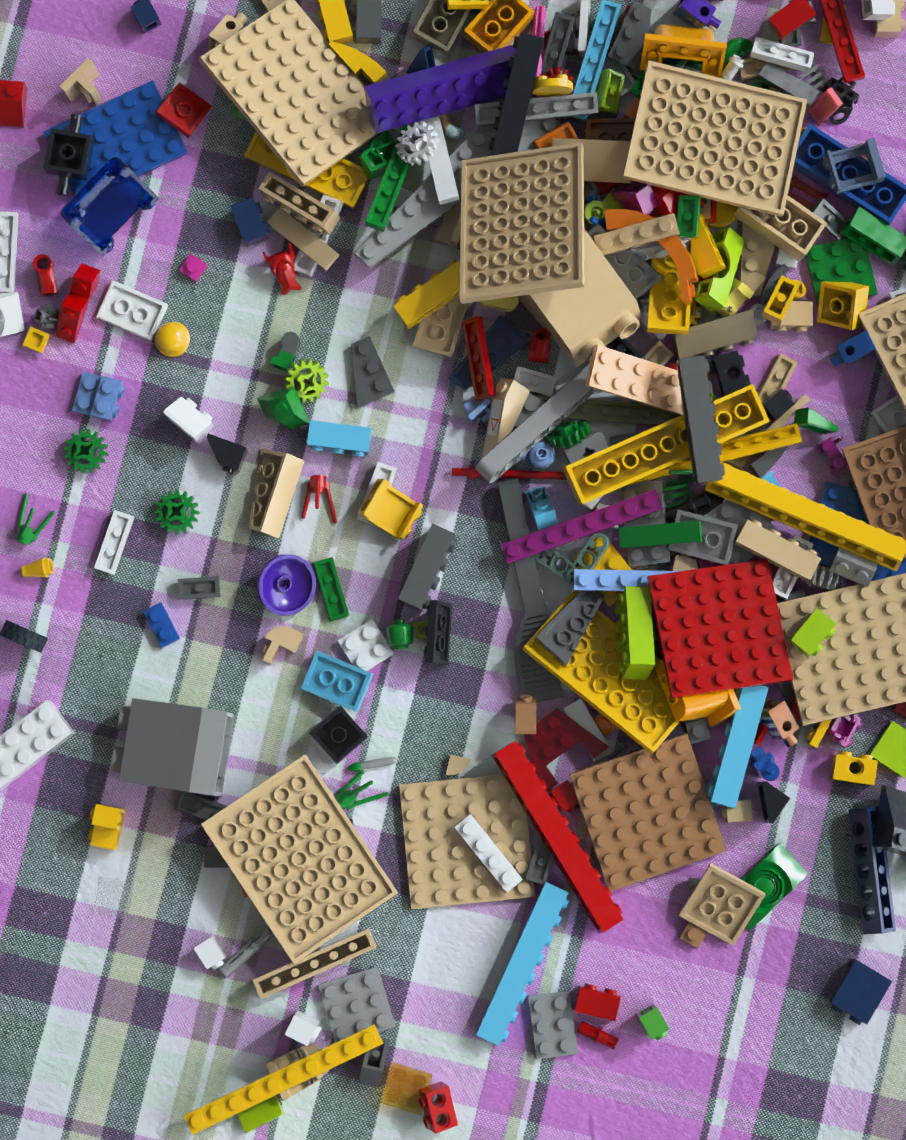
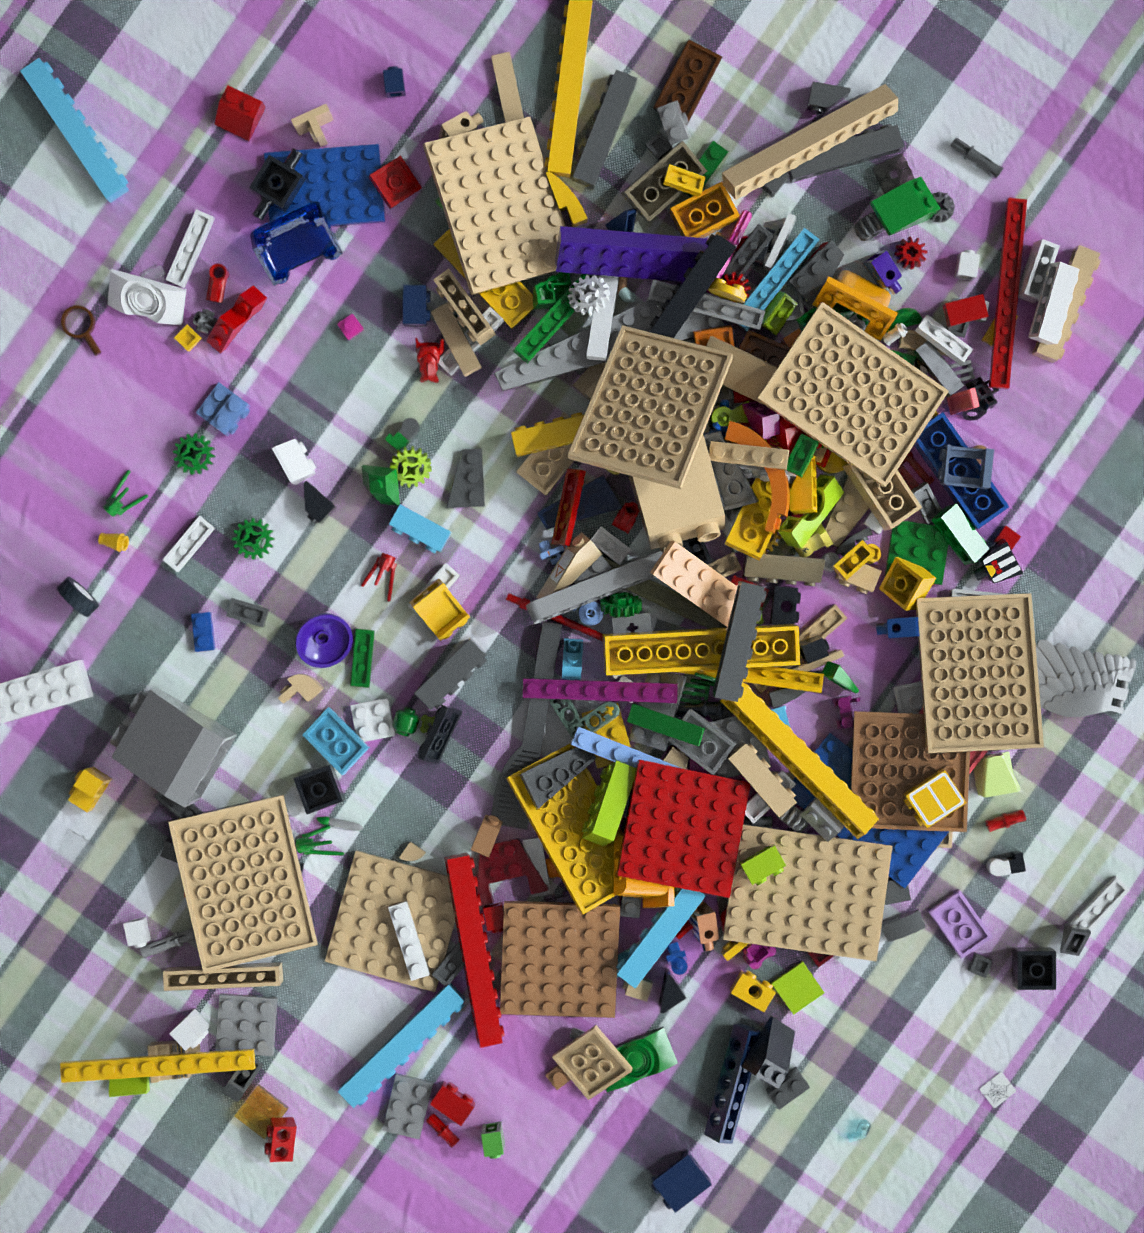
camera: 15 degrees right, 5 degrees up
(132, 311) = (282, 344): white tile -> none
(172, 339) = (308, 383): yellow helmet -> none
(274, 492) = (344, 554): tan wedge -> none

